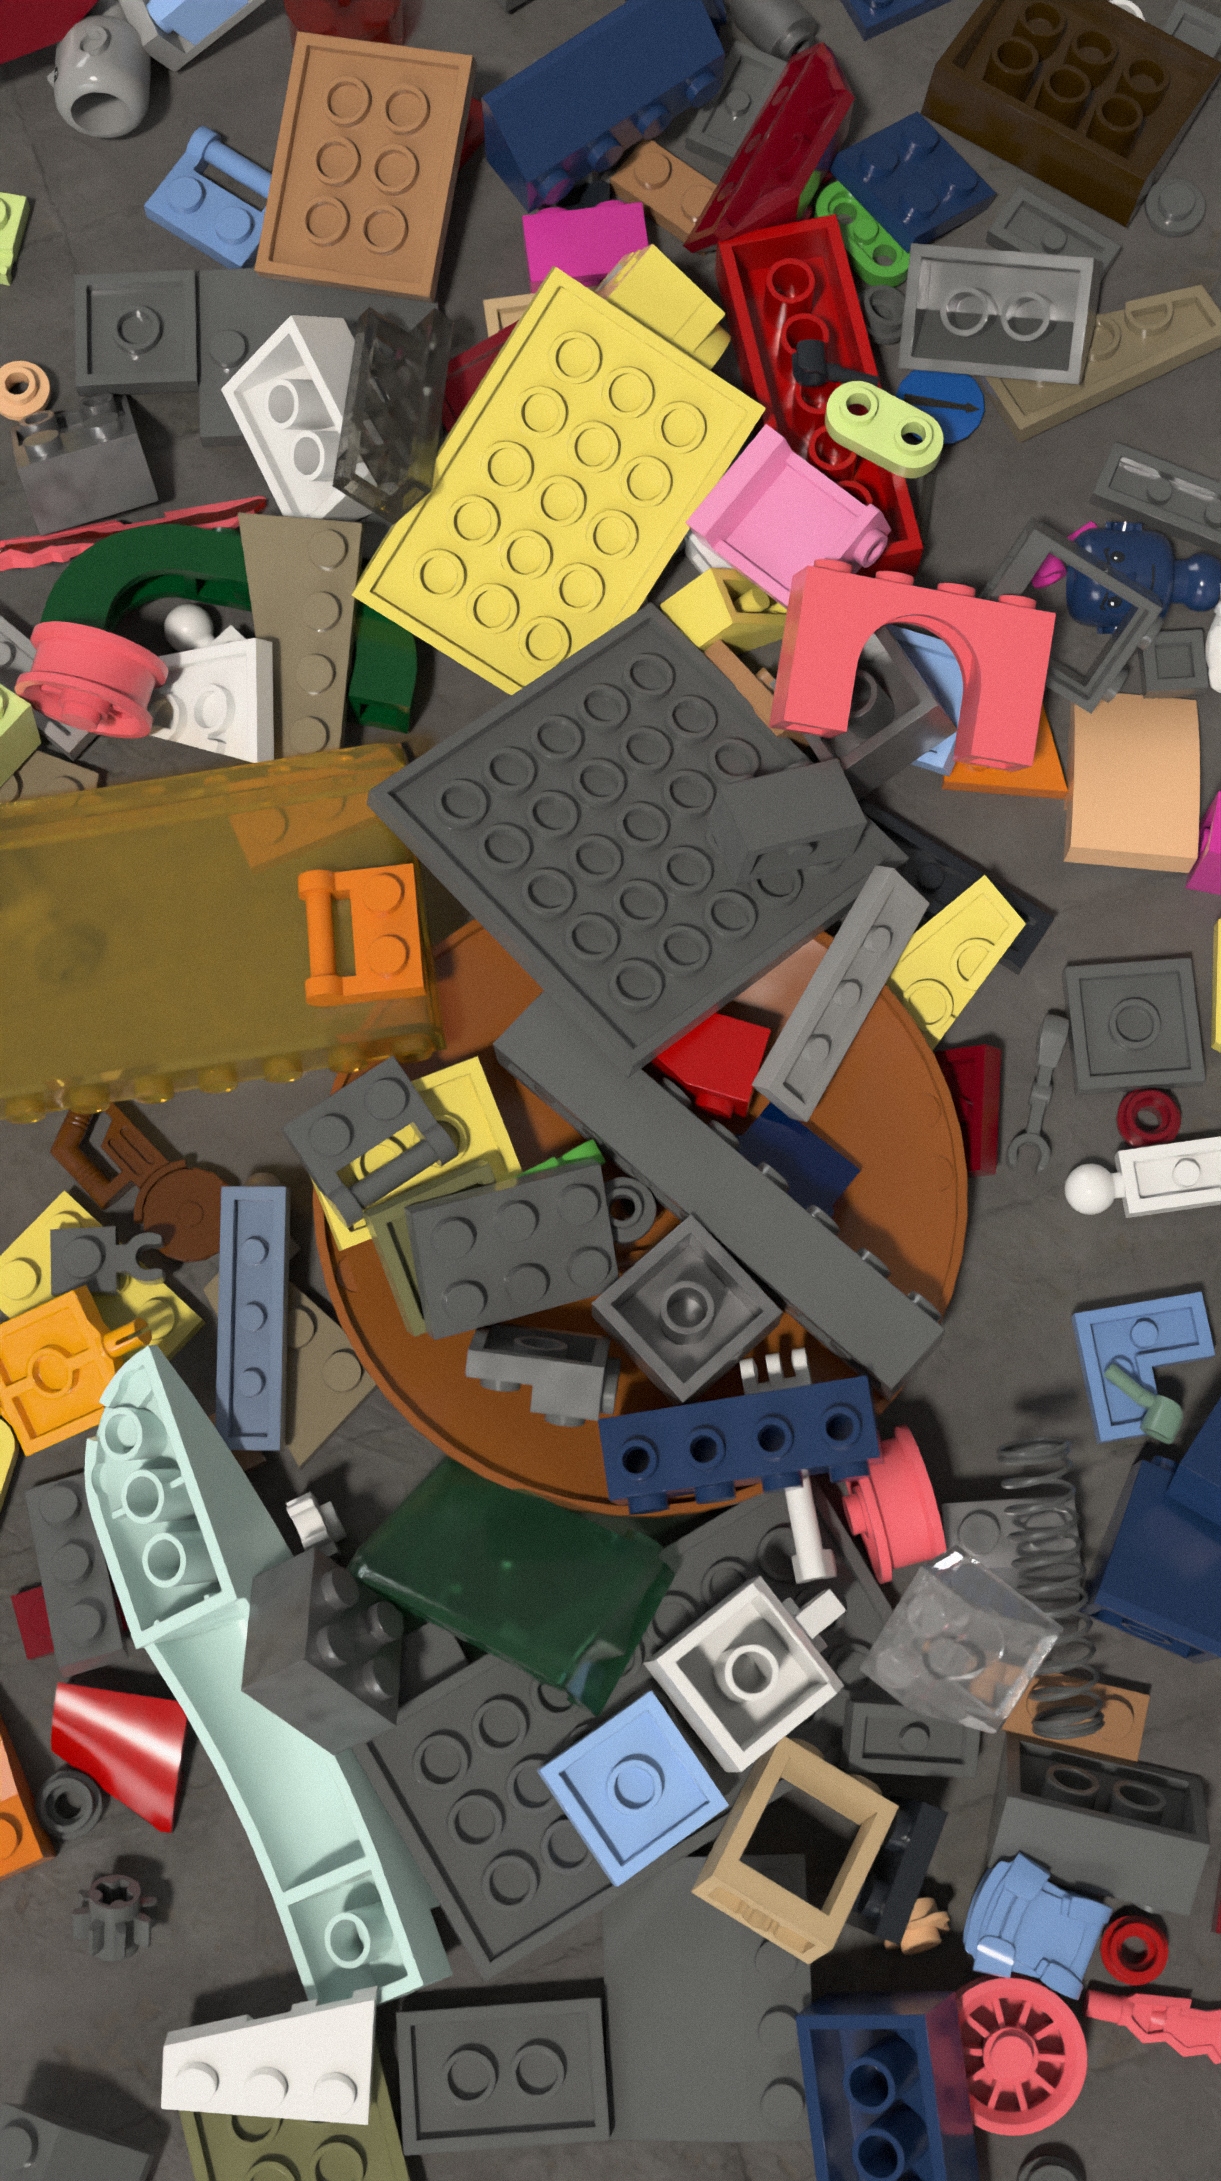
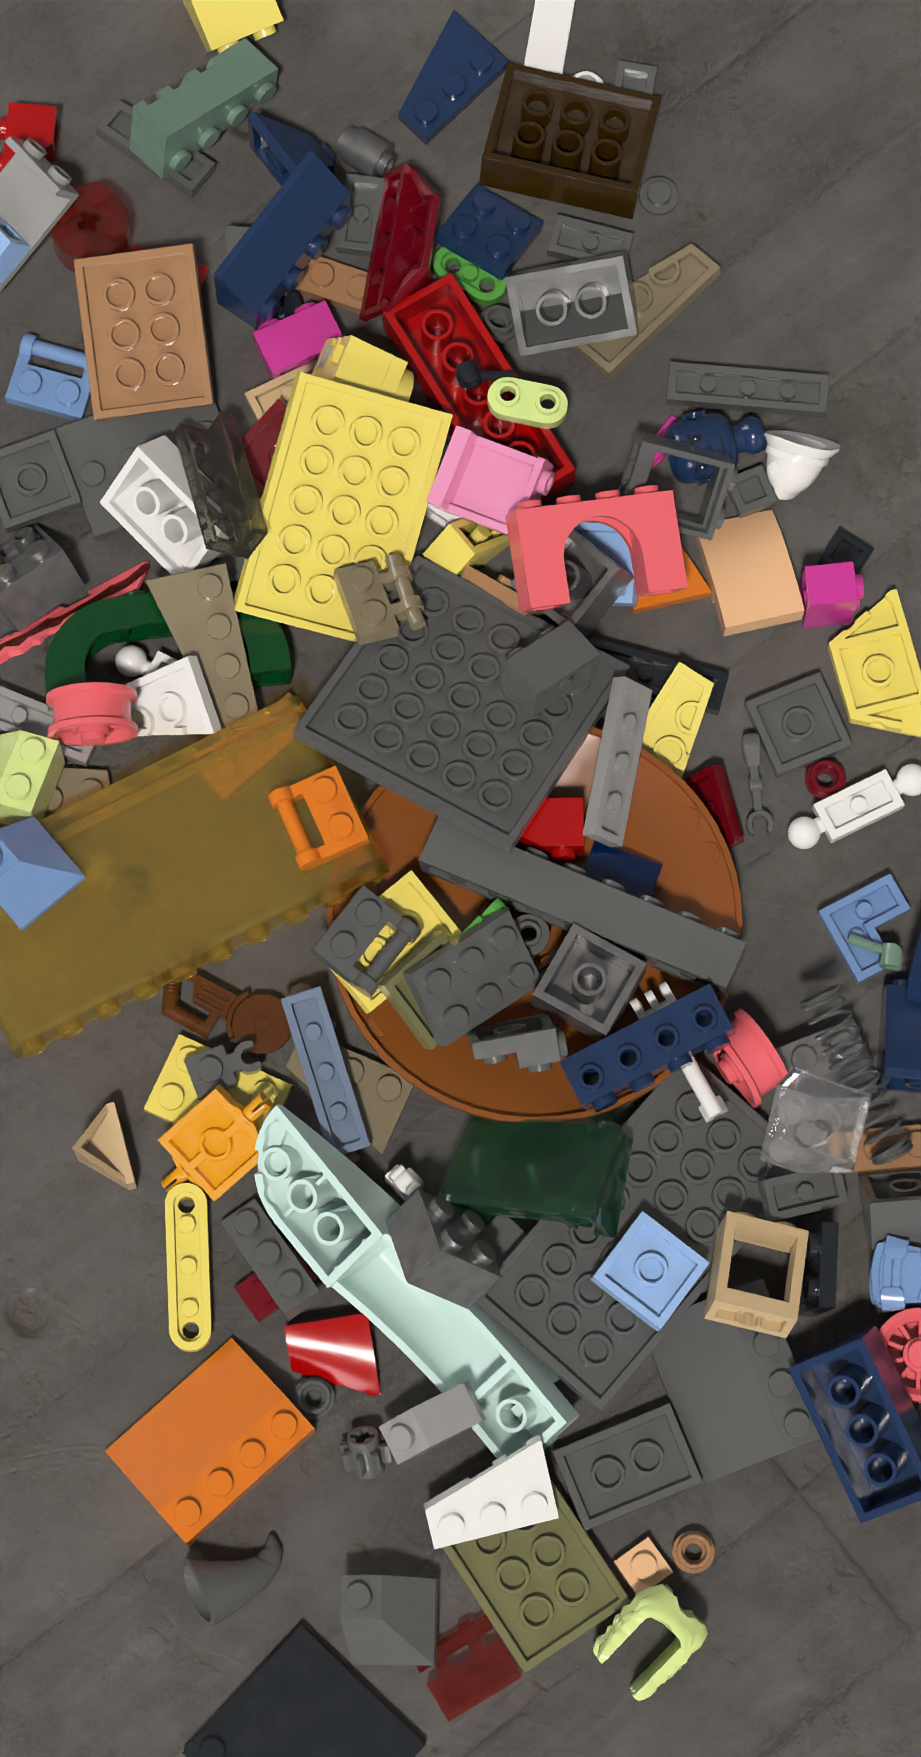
camera: 20 degrees left, 0 degrees up
(225, 1909) = (432, 1423): none -> light grey slope
(549, 644) = (367, 603): none -> dark tan plate
(749, 1670) = (695, 1181): white hinge -> none
(923, 1928) = (846, 1302): light nougat plate -> none
(956, 406) = (559, 369): blue piece -> none

